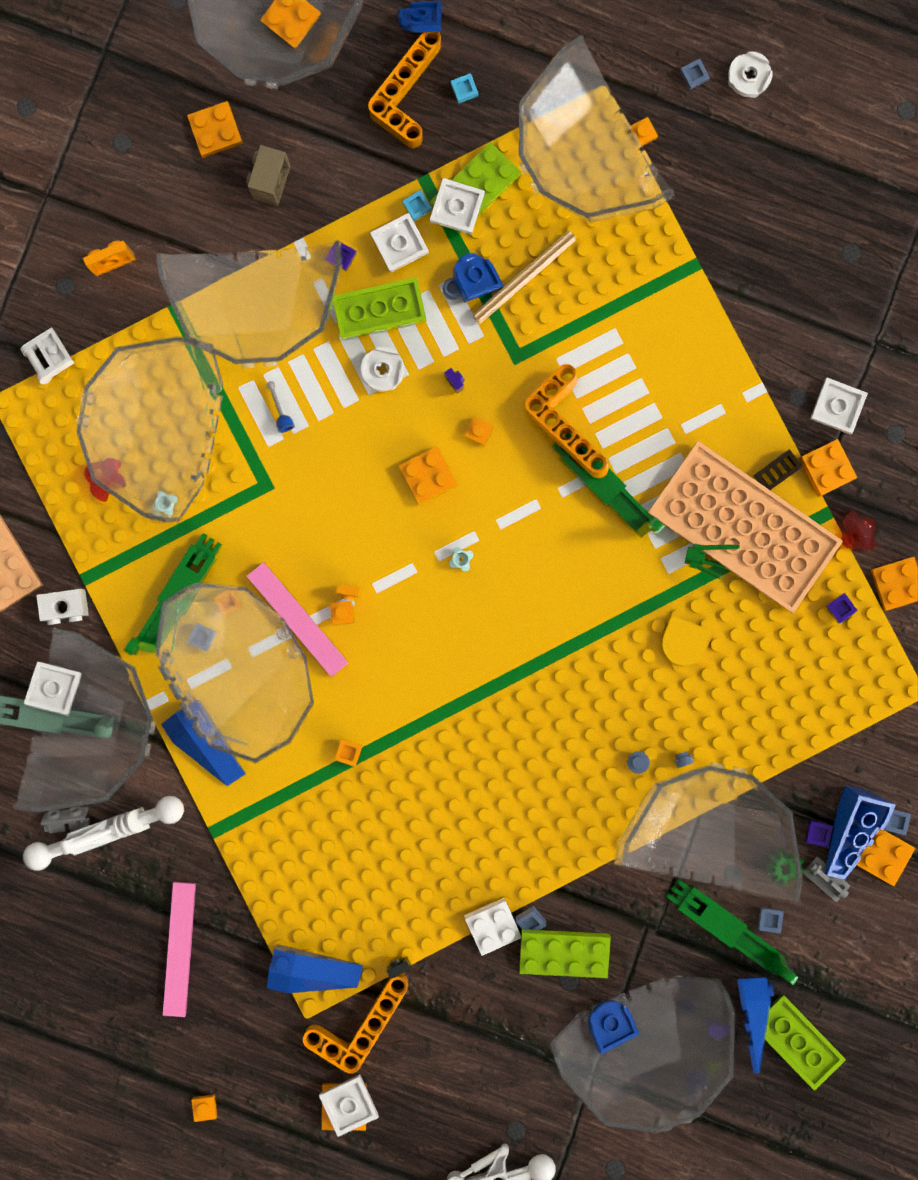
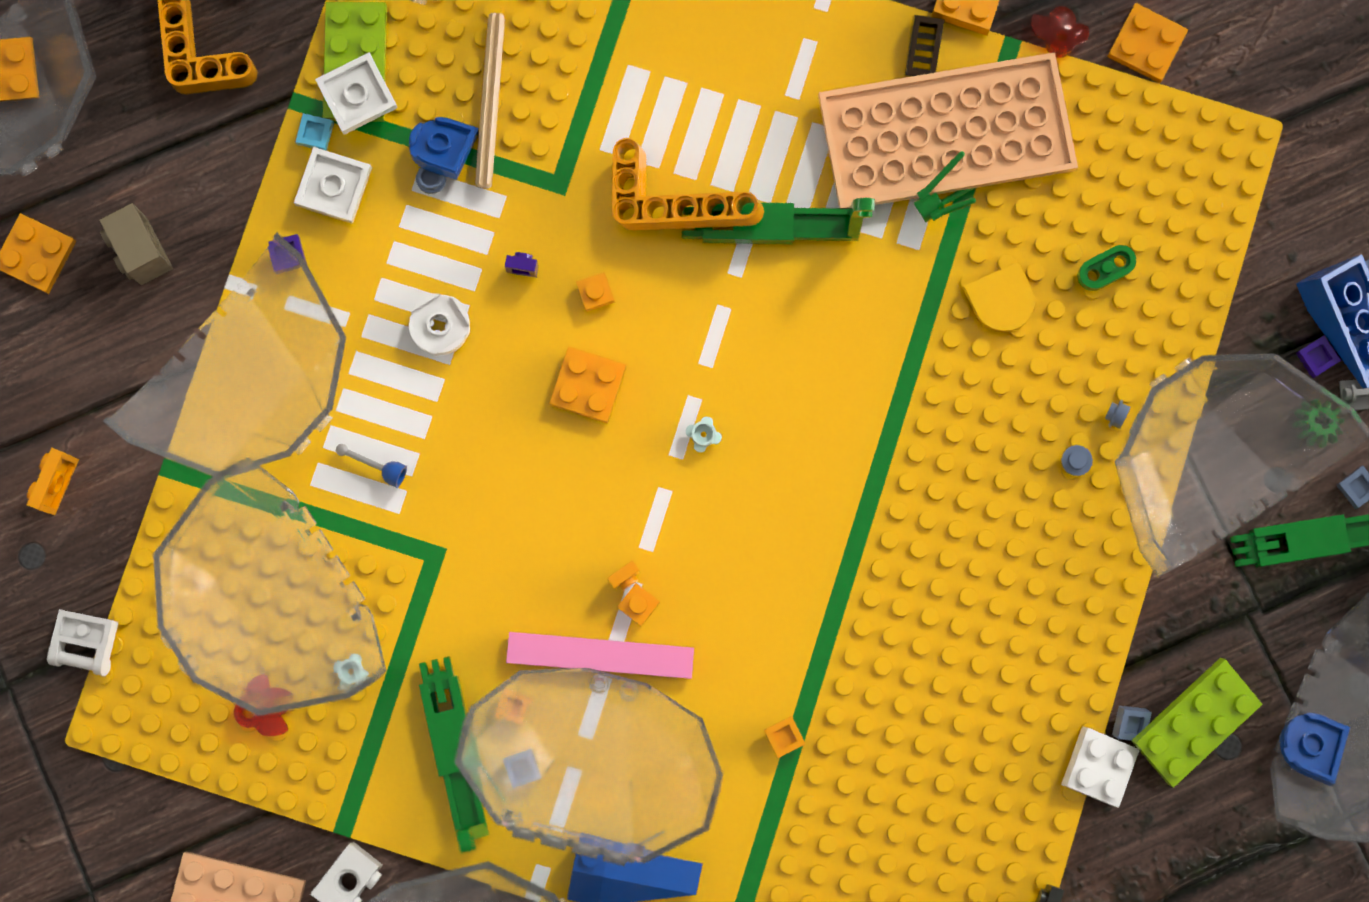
camera: 50 degrees left, 5 degrees down
(379, 308) = (377, 268): lime plate -> none
(754, 679) = (1105, 267): none -> green plate
(841, 608) = (1118, 118): dark purple plate -> none

